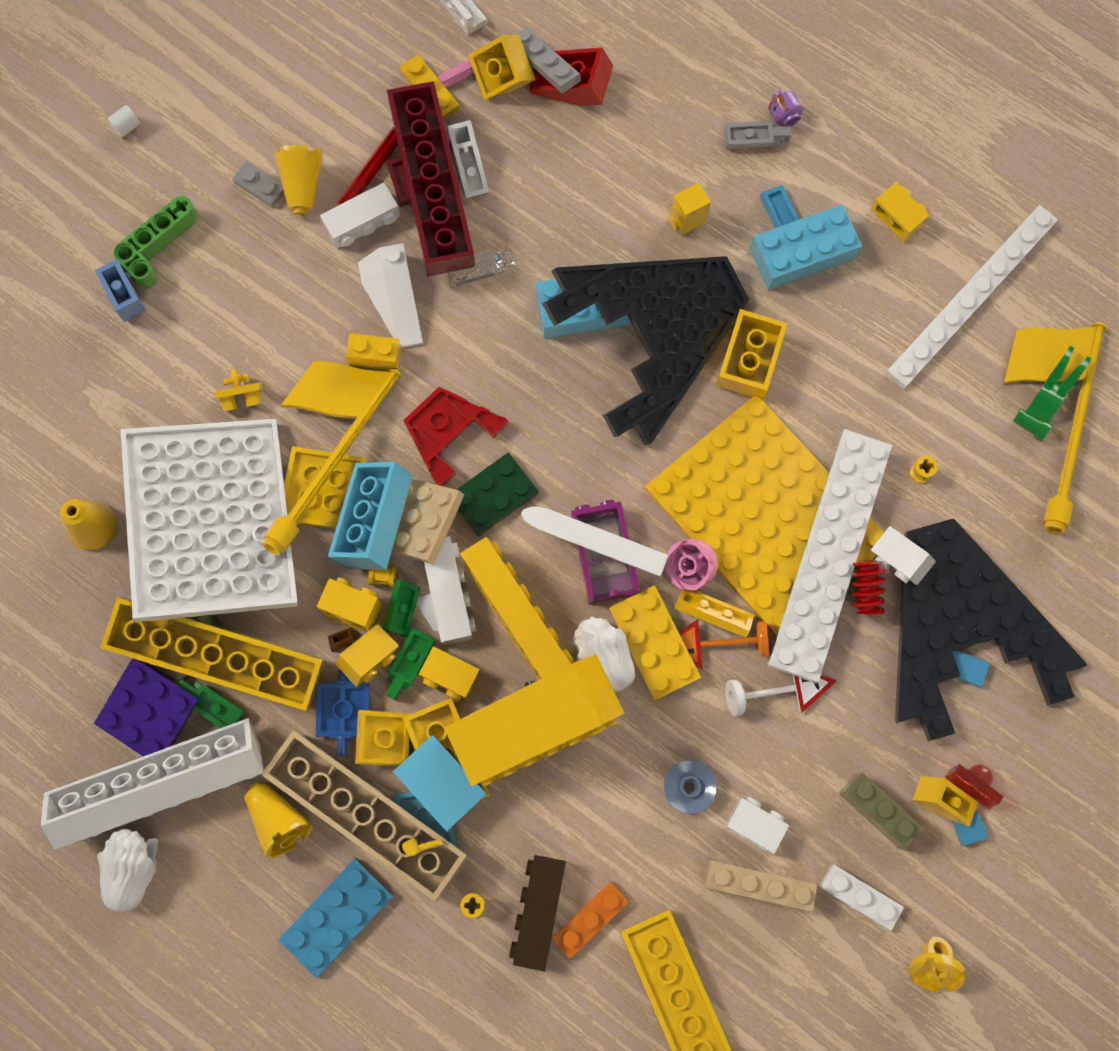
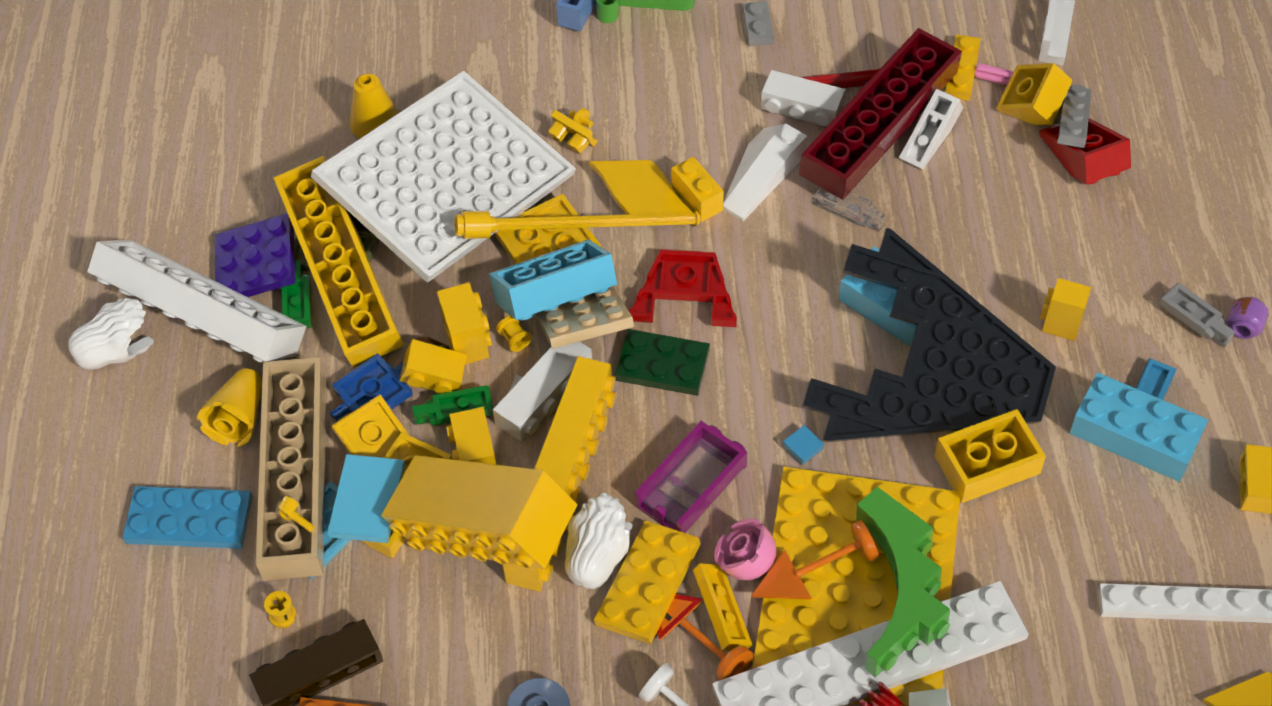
camera: 55 degrees right, 20 degrees down
(299, 175) = (790, 36): yellow cone -> none
(401, 608) = (498, 365): green plate -> none
(595, 539) = (694, 459): white piece -> none
(637, 459) = (803, 445): none -> dark azure tile
(731, 557) = (784, 580): none -> orange piece
(832, 501) = (917, 578): none -> bright green arch
(928, 463) = (1033, 679): yellow bush -> none

